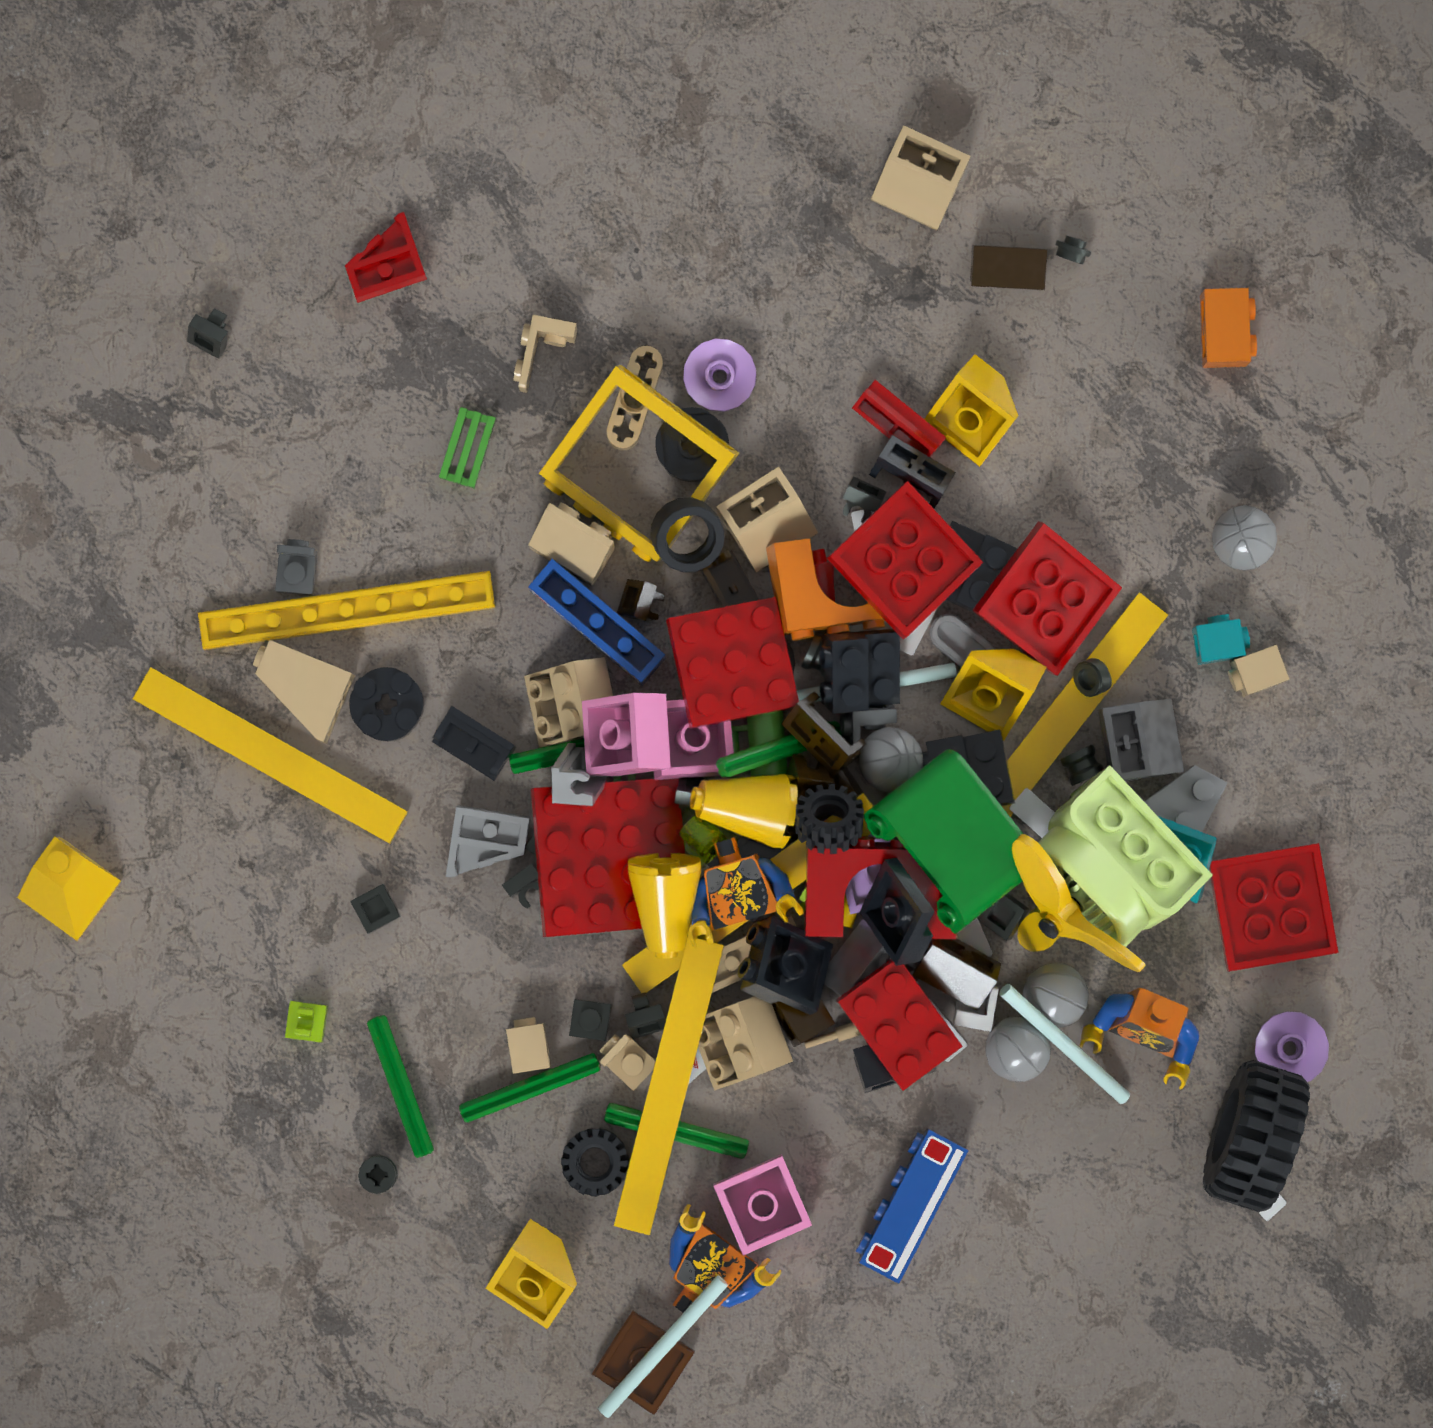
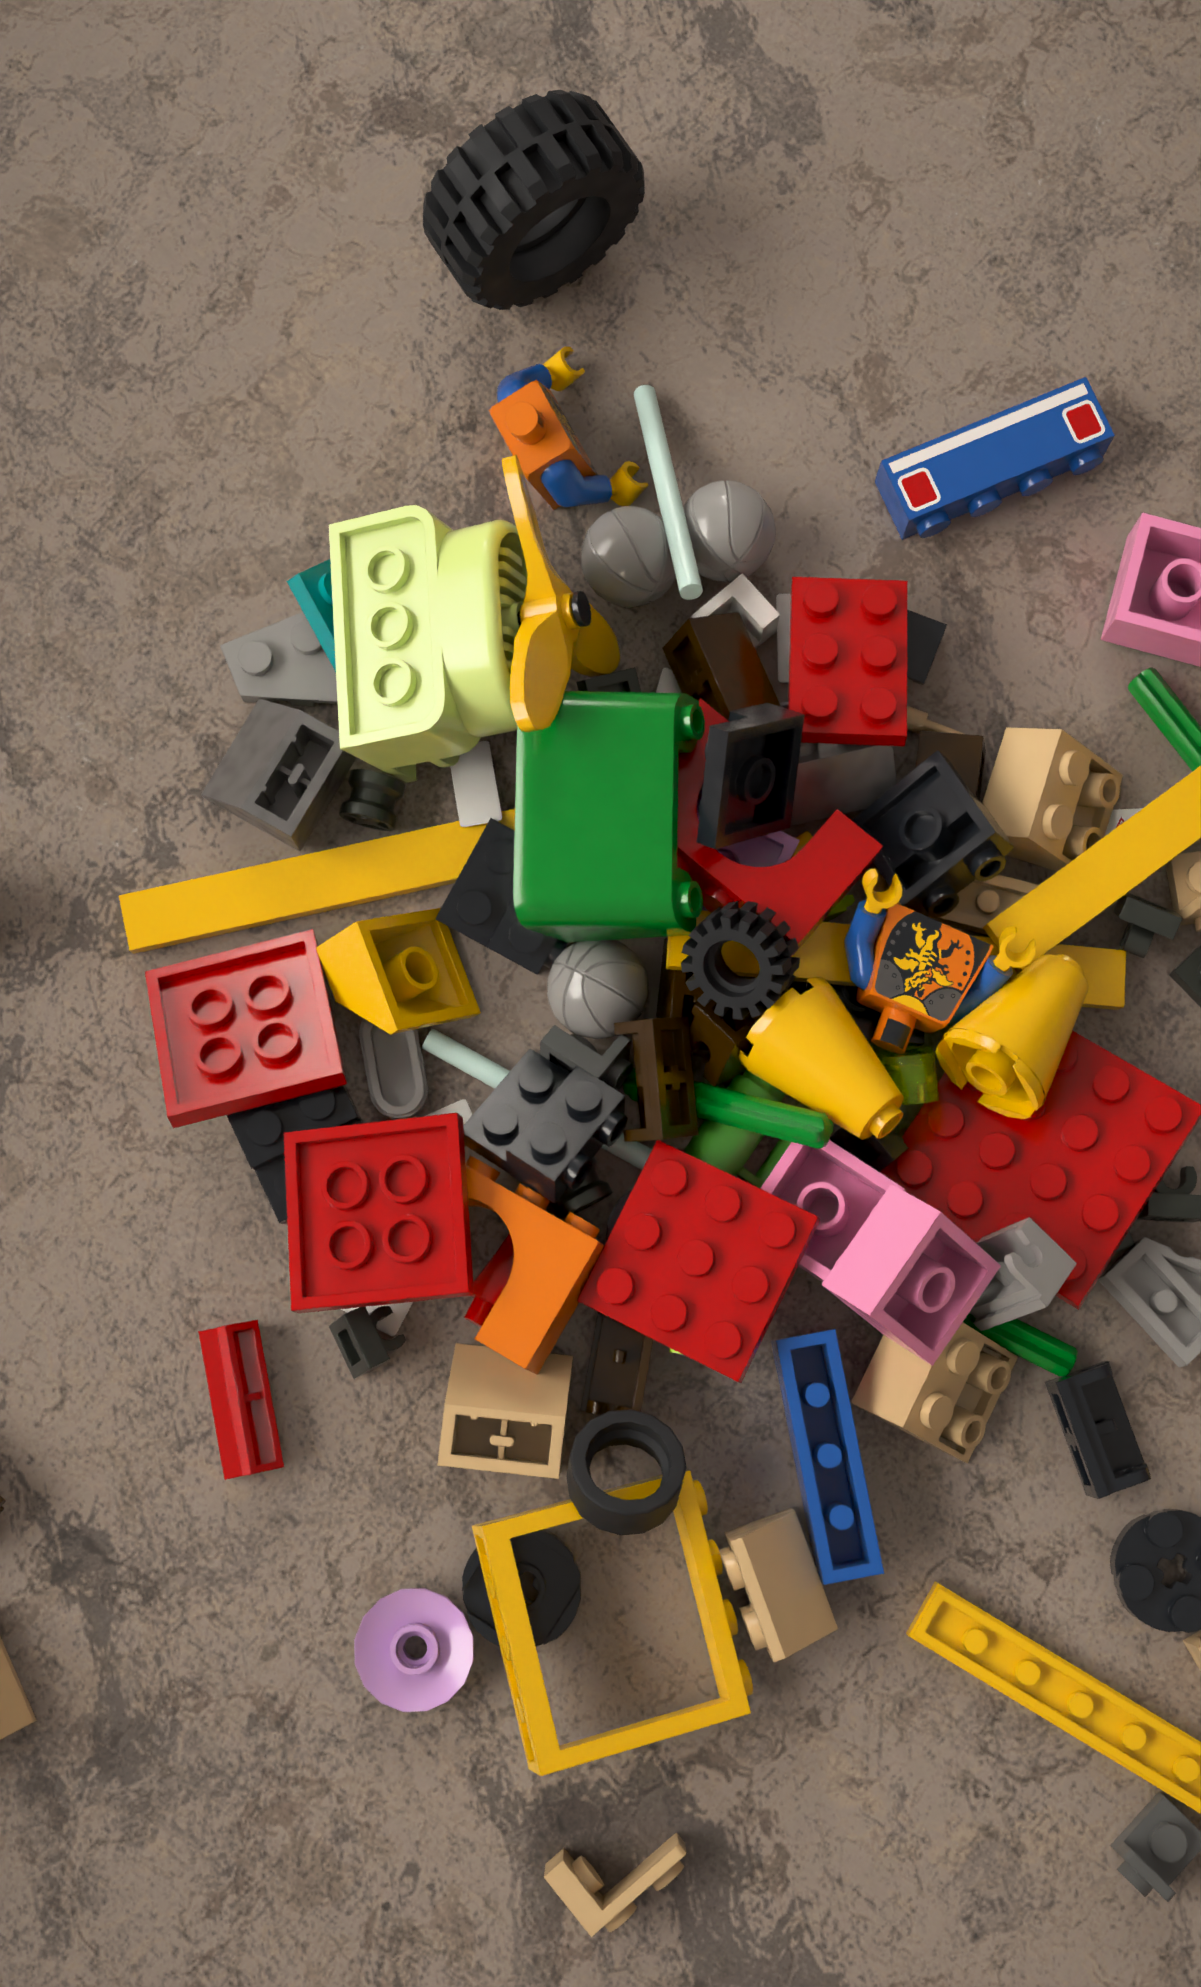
camera: 140 degrees left, 5 degrees down
(476, 417) = (827, 1842): bright green tile -> none
(616, 420) = (591, 1697): tan beam -> none
(638, 599) = (750, 1441): dark brown tile -> none
(915, 468) = (269, 1323): black hinge -> none
(974, 410) = (134, 1335): yellow slope -> none
(1092, 677) = (272, 889): pearl dark grey tile -> none
(1220, 640) = (84, 814): teal brick -> none
(1258, 671) = (71, 742): tan brick -> none
(1273, 907) = (290, 462): red plate -> none
(1304, 1032) = (399, 271): lavender dish -> none

